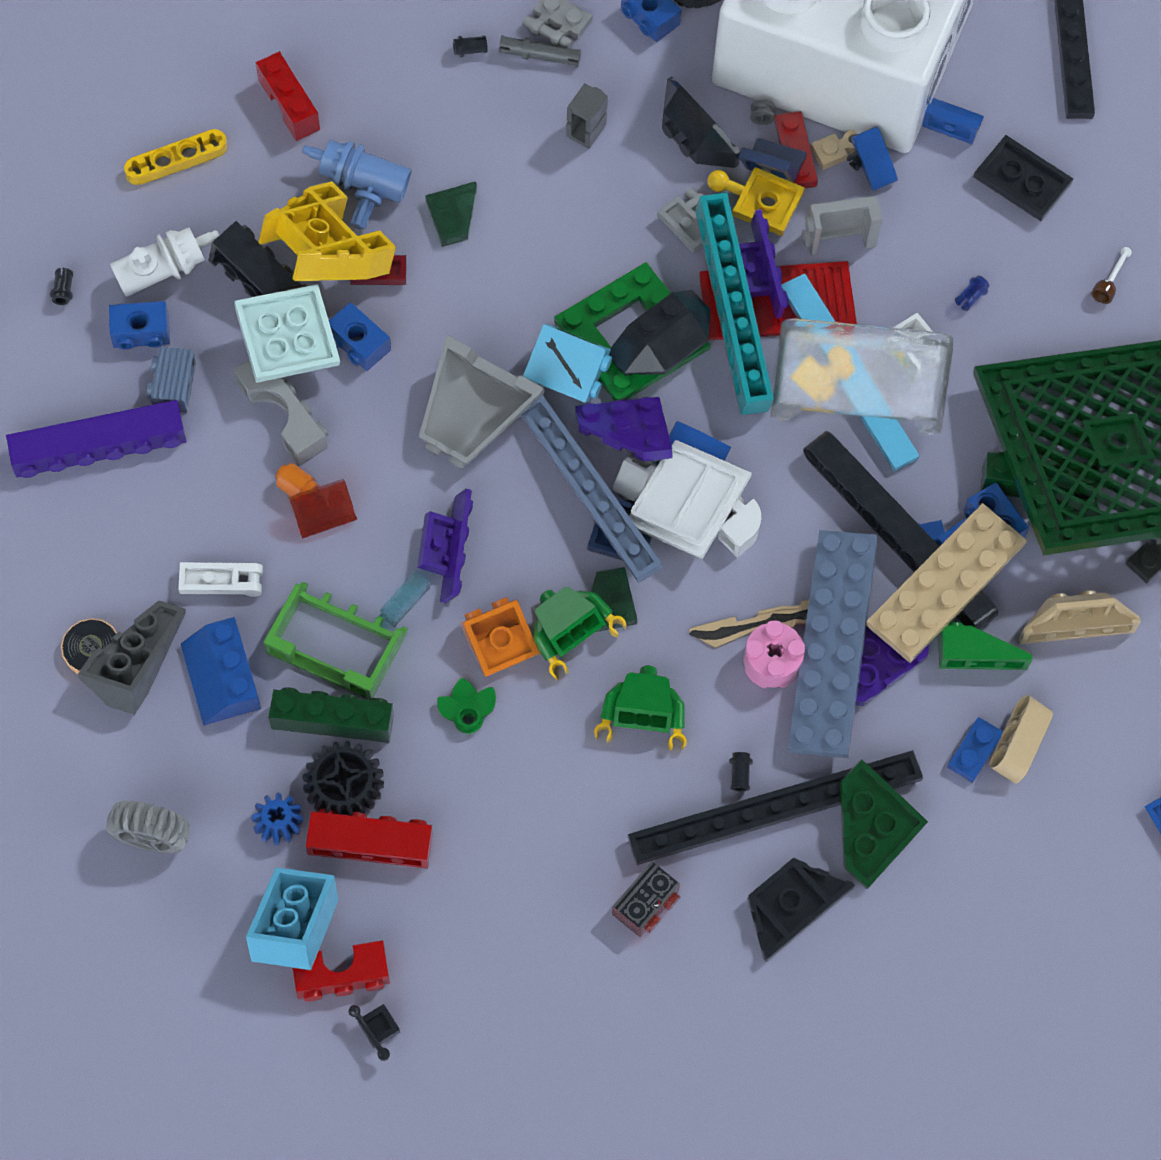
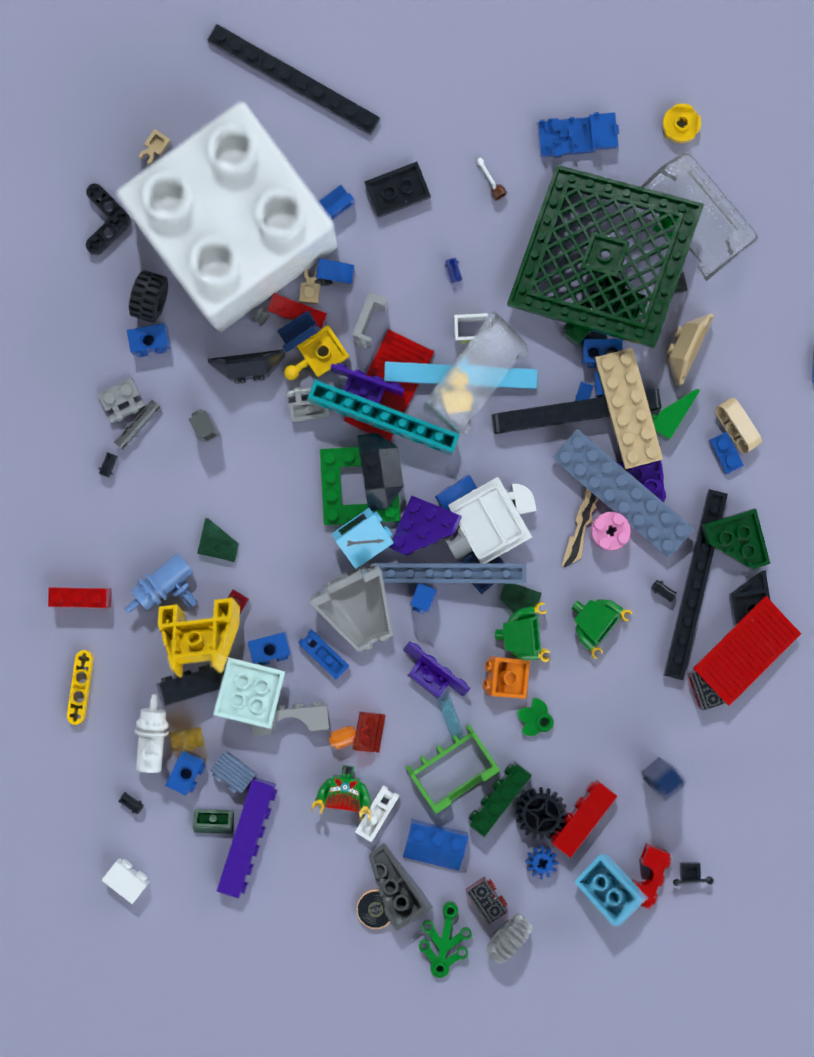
camera: 55 degrees left, 20 degrees up
(92, 391) = (213, 821): none -> dark green slope
(93, 757) = (444, 943): none -> green plant
(184, 301) = (186, 739): none -> clear yellow brick
(184, 777) = (486, 900): none -> brick
(222, 520) = (344, 793): none -> torso
(389, 405) = (324, 654): none -> blue plate
(486, 901) = (663, 778): none -> dark blue wedge
(537, 473) = (422, 598): none -> blue brick
(731, 919) = (747, 650): none -> red window

